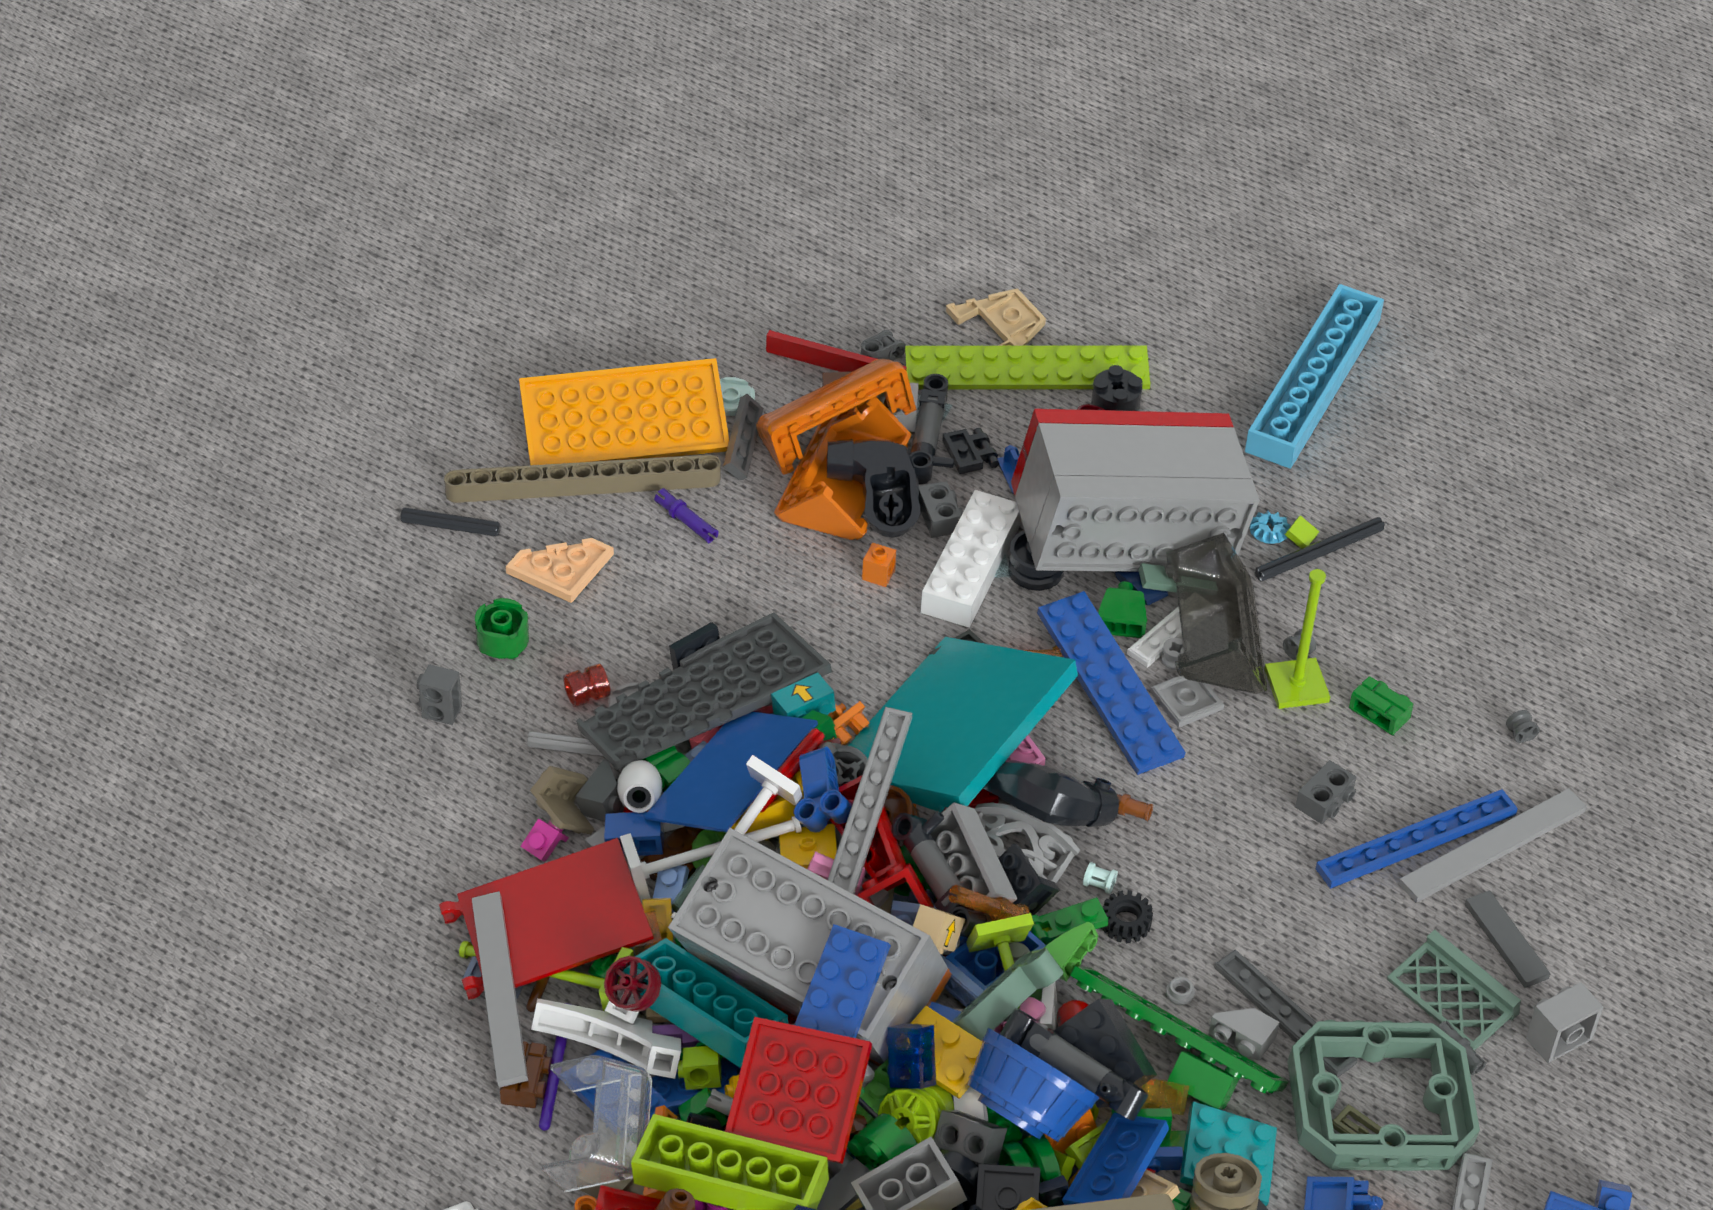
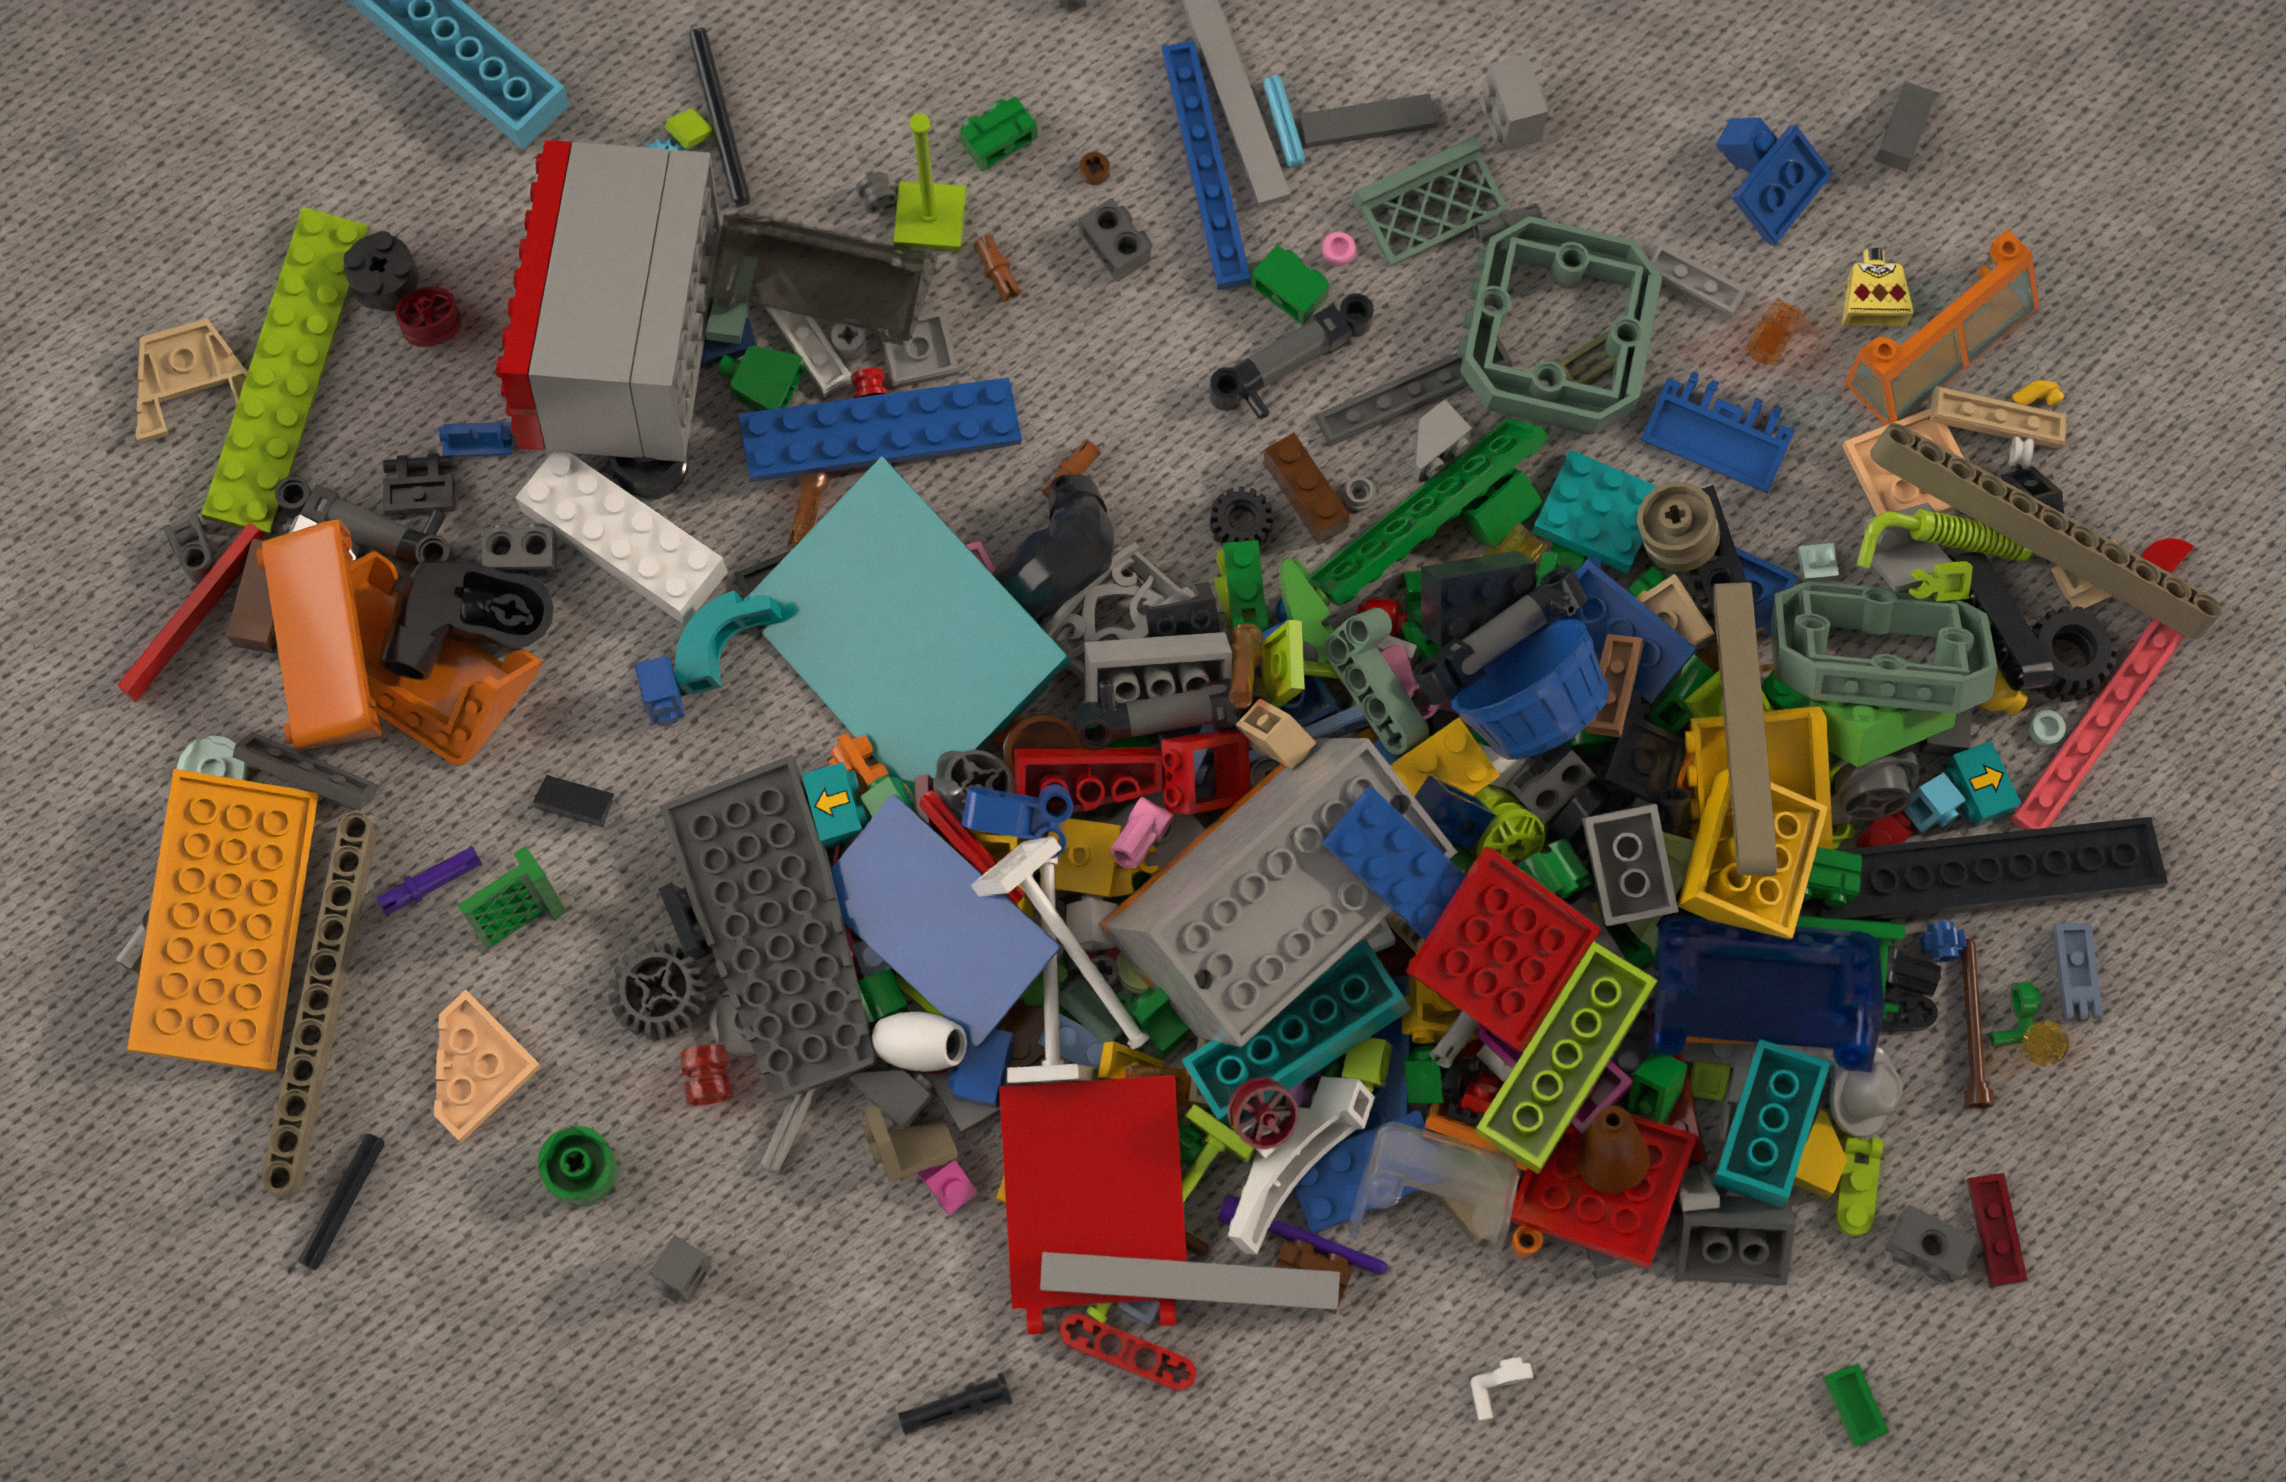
camera: 75 degrees left, 25 degrees up
(384, 886) = (974, 1399): none -> black pin
(438, 974) = (1130, 1347): none -> red beam
(640, 648) = (650, 1005): none -> dark grey gear
(689, 540) = (511, 901): none -> green fence
(768, 578) = (573, 800): none -> black slope
(860, 597) = (660, 691): none -> blue brick
(870, 799) = (1067, 763): light grey tile -> none
(879, 564) = (599, 653): orange brick -> none
(912, 619) = (710, 630): none -> teal arch
(1061, 1156) = (1619, 667): none -> medium nougat plate
(1100, 877) = (1177, 532): light aqua bush -> none
(1145, 669) = (868, 382): none -> red wheel
(1167, 950) = (1306, 488): none -> reddish brown brick
(1272, 729) = (997, 267): none -> dark orange pin
(1308, 941) = (1326, 332): none -> piece
(1338, 908) = (1290, 284): none -> green brick
(1380, 779) = (1090, 158): none -> reddish brown bush
(1385, 940) = (1338, 249): none -> bright pink tile
(1479, 883) = (1284, 121): none -> medium azure axle

